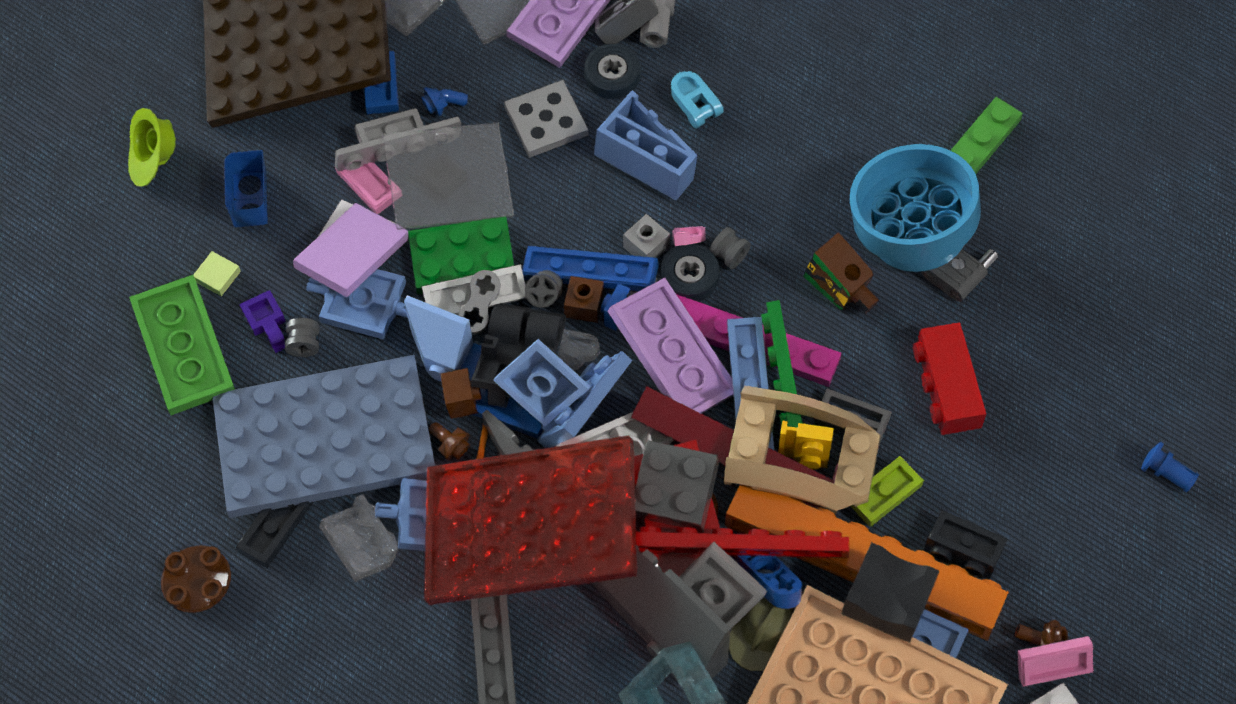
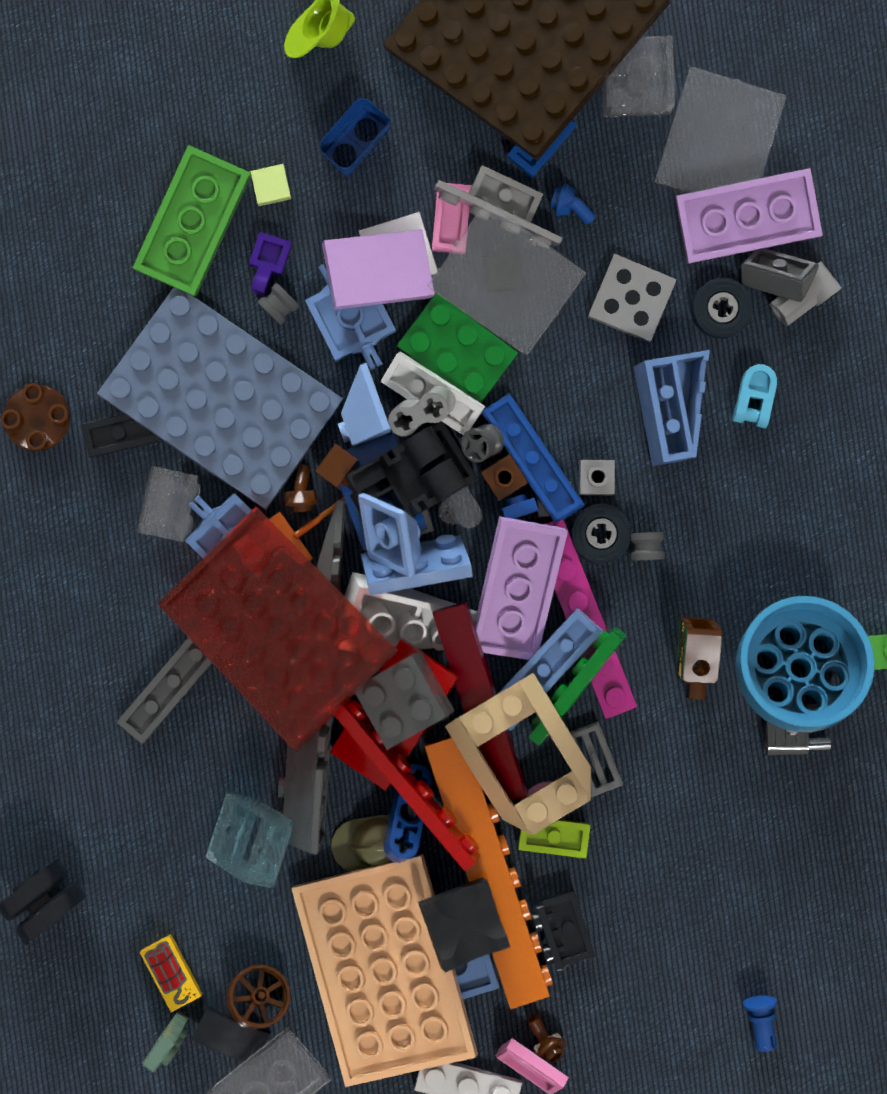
camera: 45 degrees right, 25 degrees up
(688, 235) = (629, 505): bright pink tile -> none
(723, 584) = (358, 795): light grey tile -> none
(806, 444) = (530, 758): yellow plate -> none
(949, 379) = (688, 805): red brick -> none

